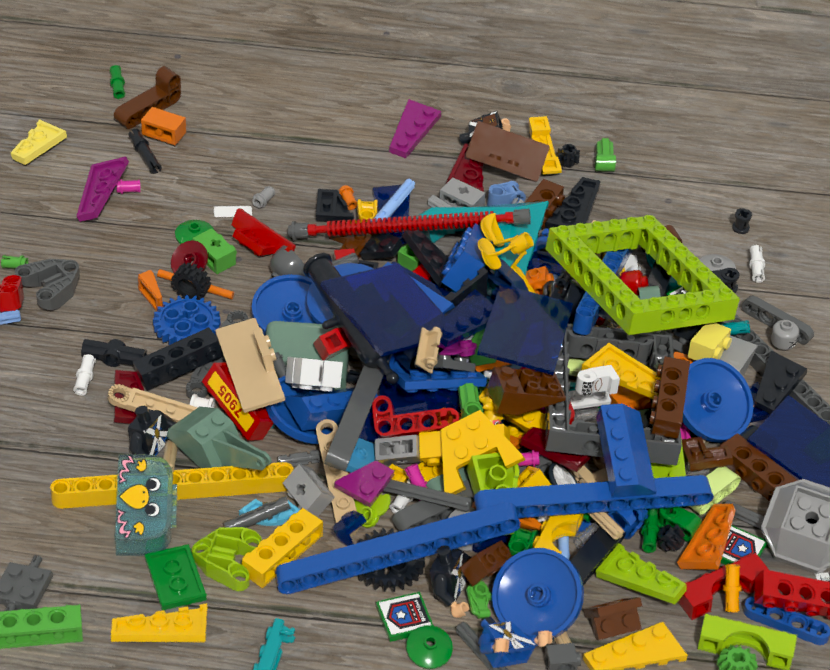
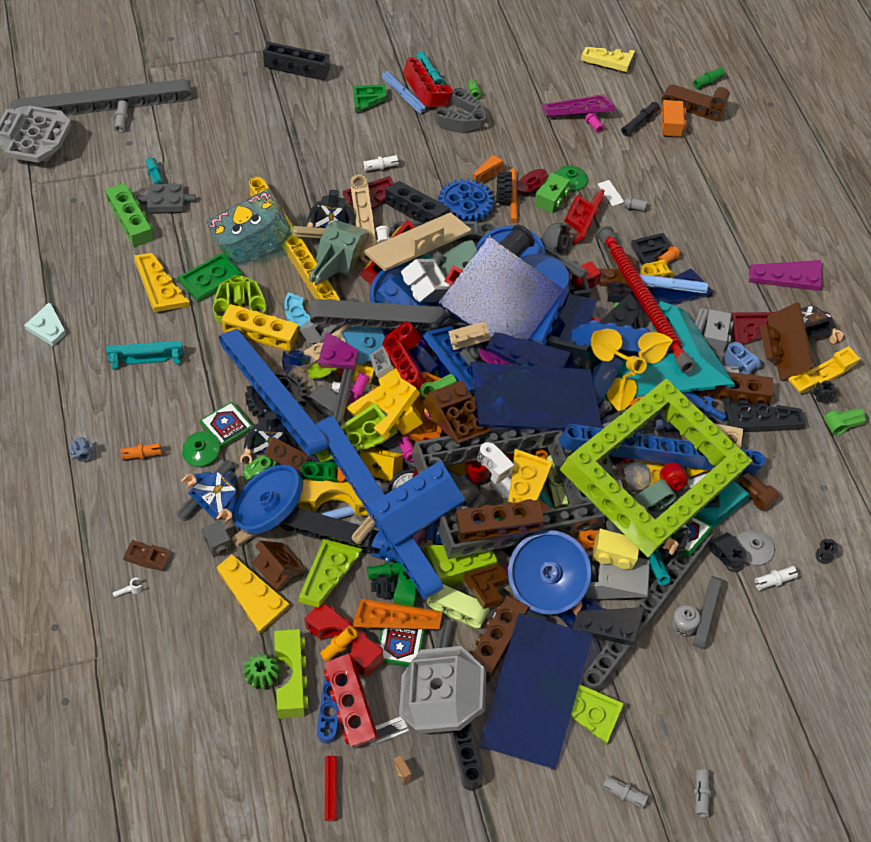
camera: 70 degrees right, 10 degrees up
(112, 352) = (410, 169): black piece -> none
(261, 513) = (287, 304): dark grey pin -> none

